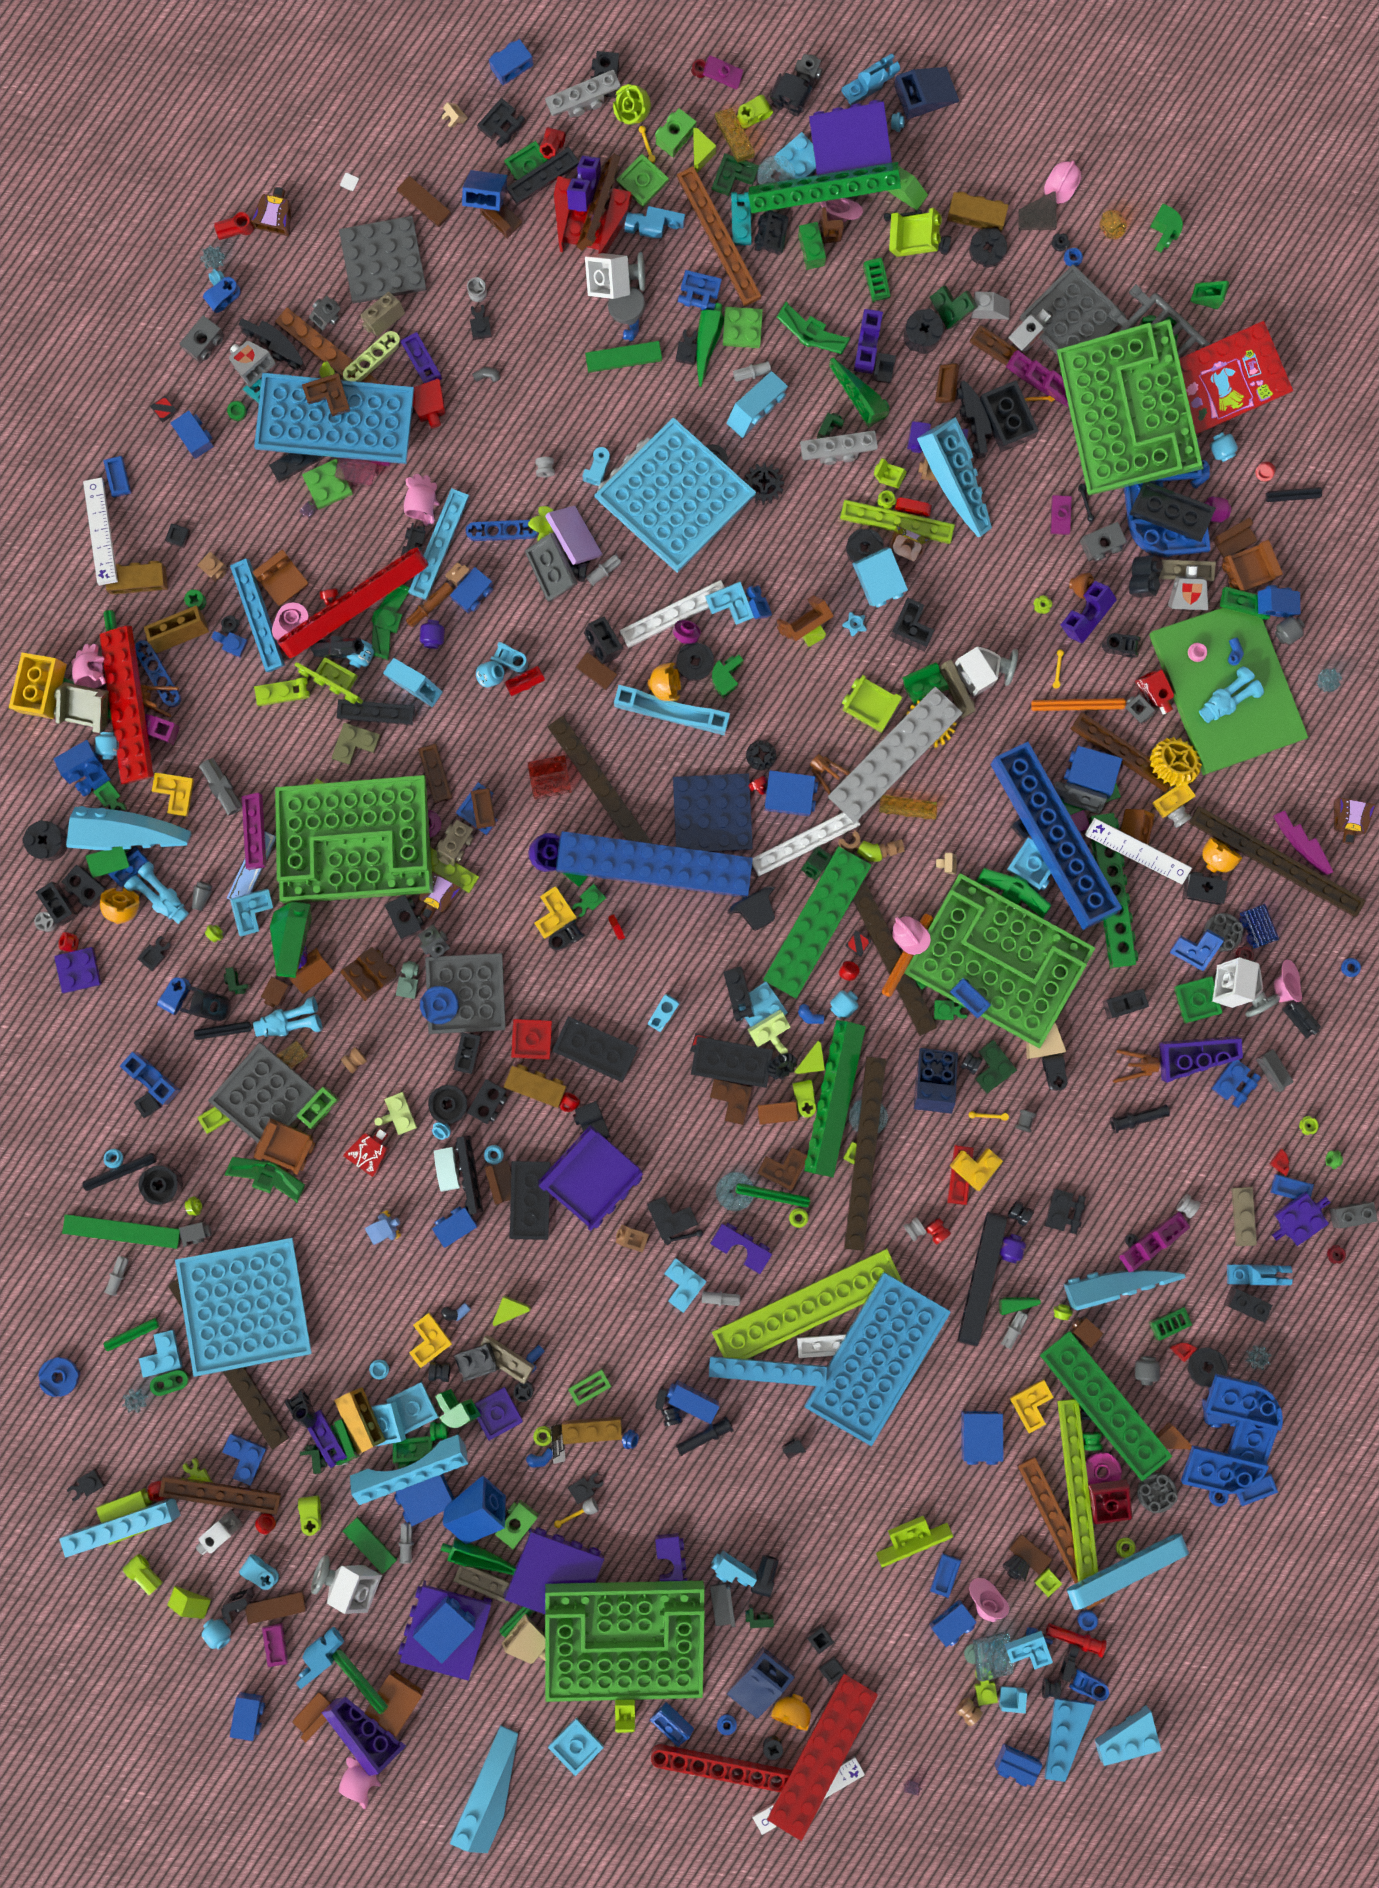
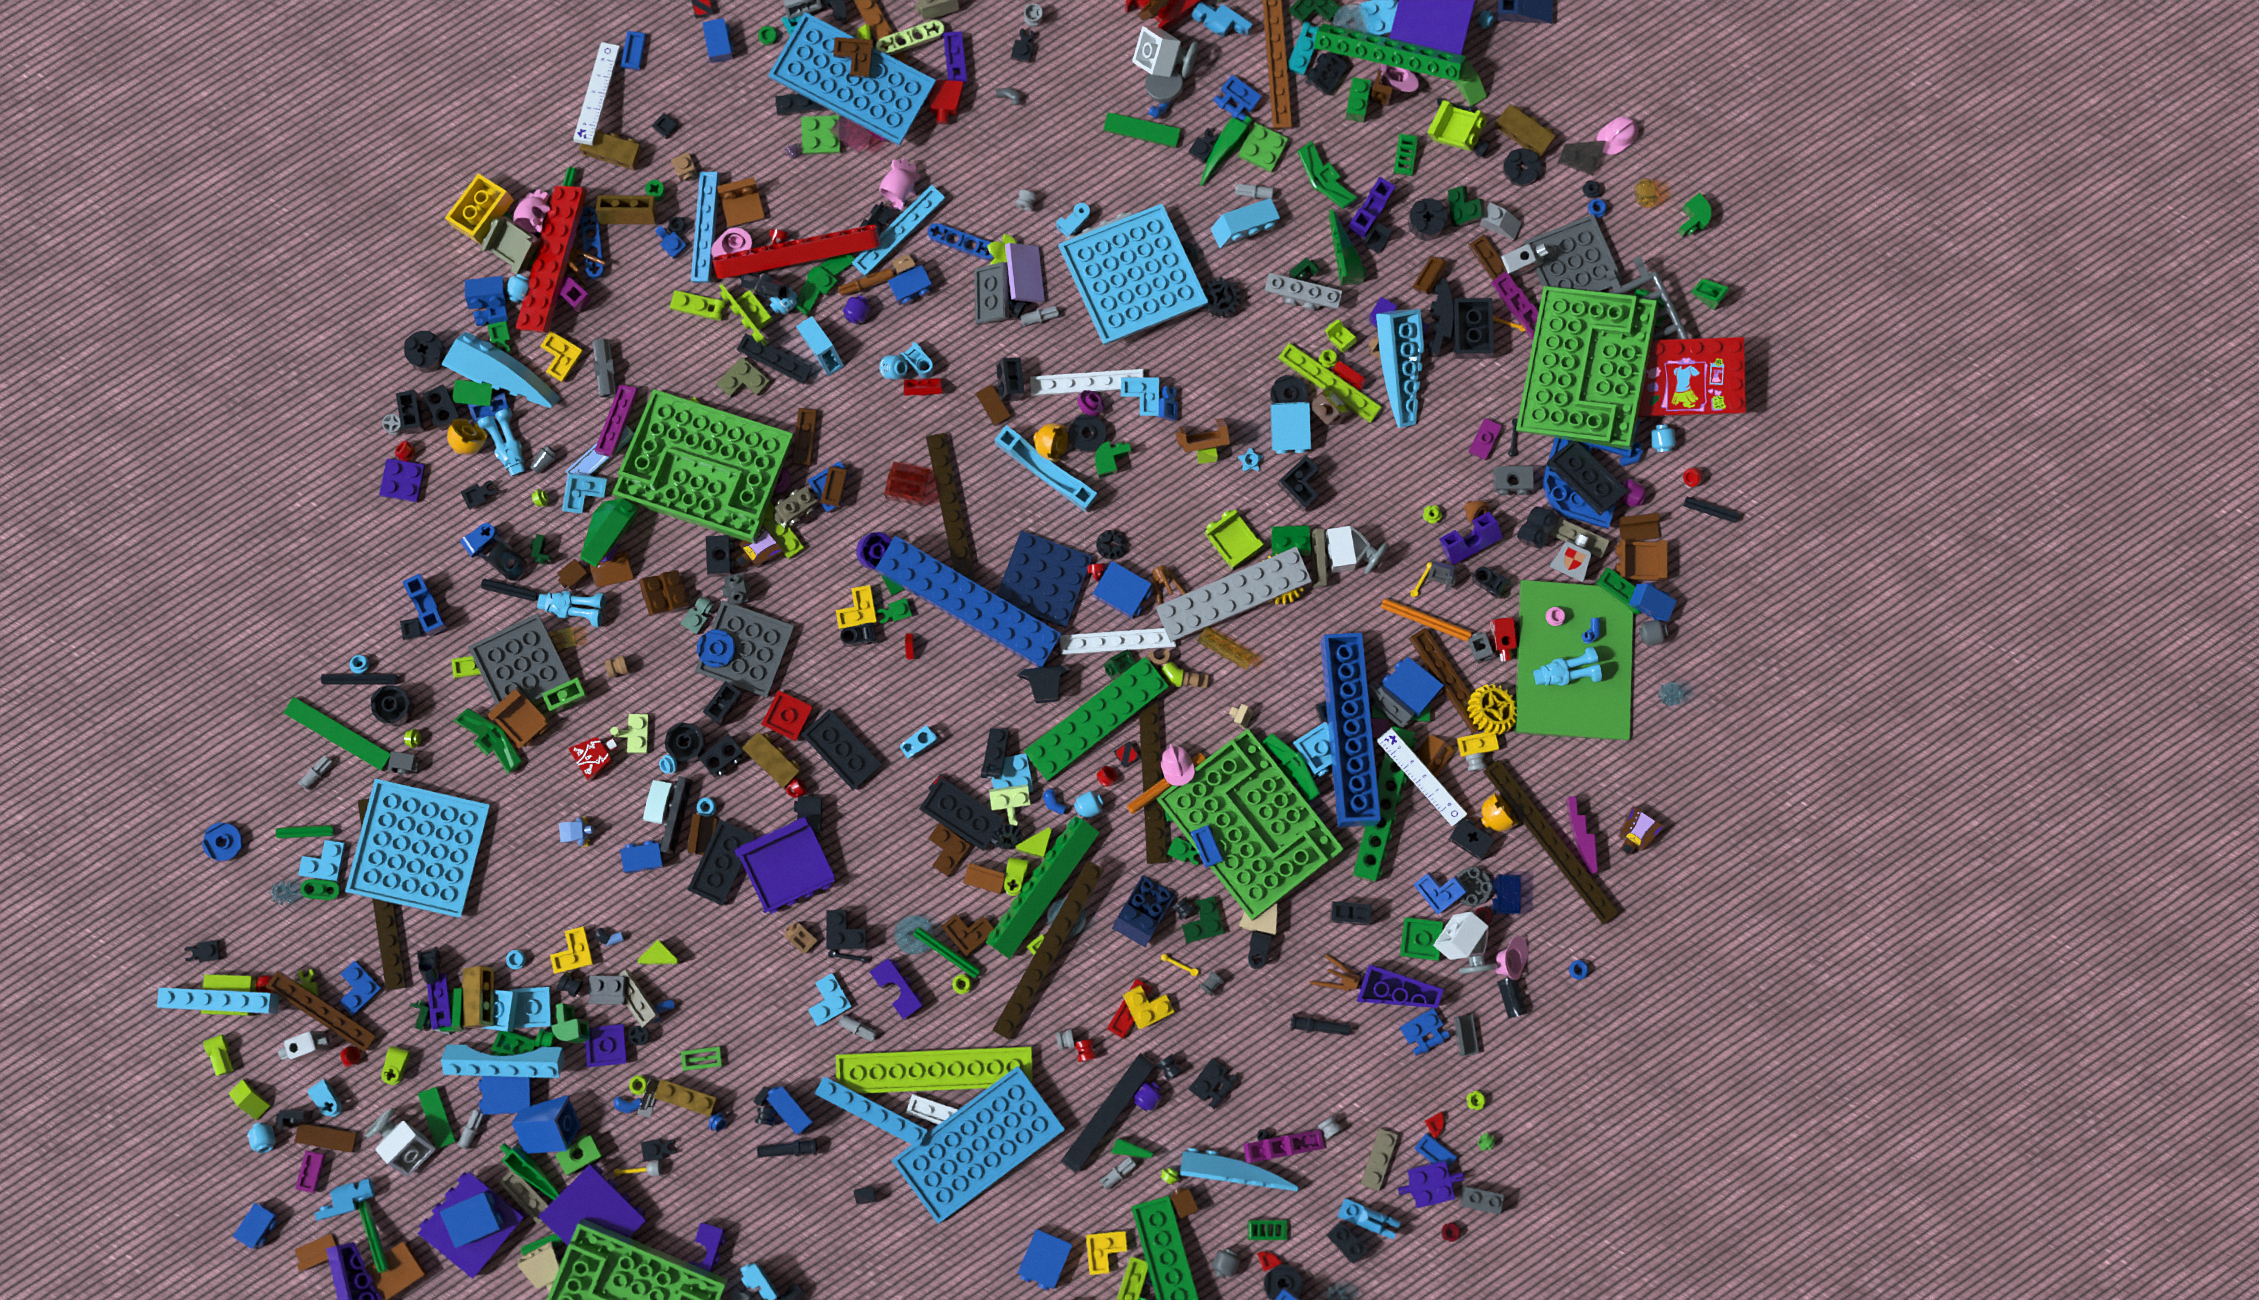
camera: 25 degrees right, 5 degrees down
(1076, 656) = (1442, 573): none -> flat silver bracket

